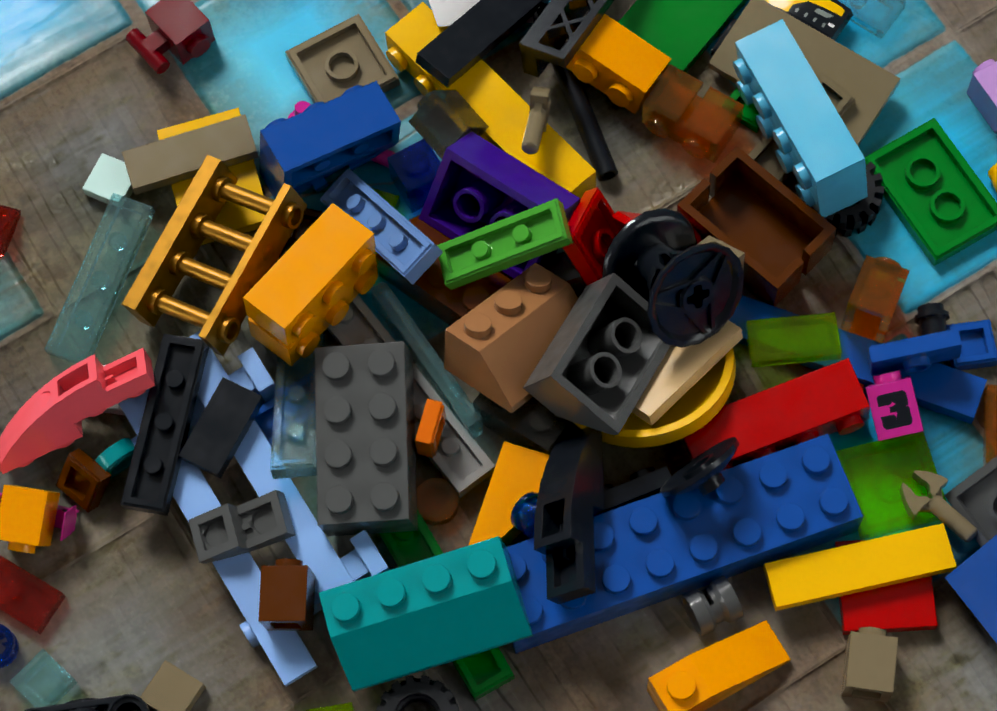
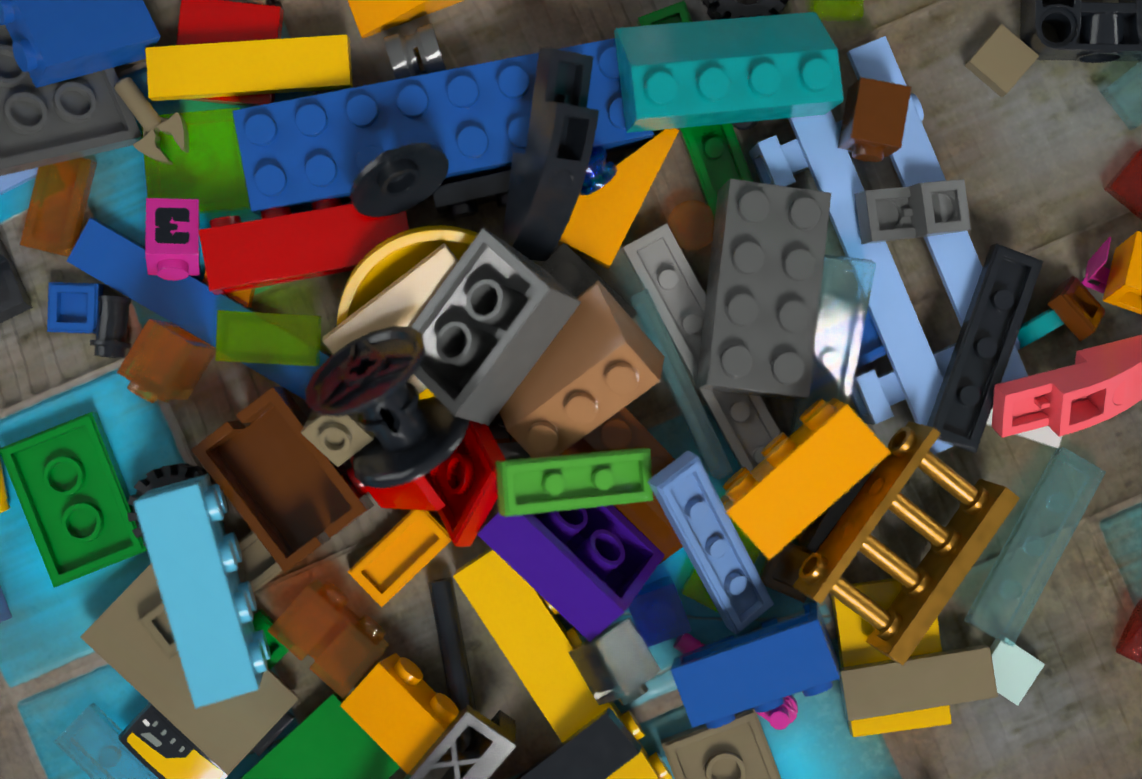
camera: 175 degrees left, 20 degrees up
(221, 427) = (922, 330): black tile -> none
(430, 428) = (689, 291): orange tile -> none
(537, 119) = (511, 642): dark tan bar -> none
(649, 183) = (400, 555): none -> light orange tile
(914, 353) = (135, 289): blue plate -> none

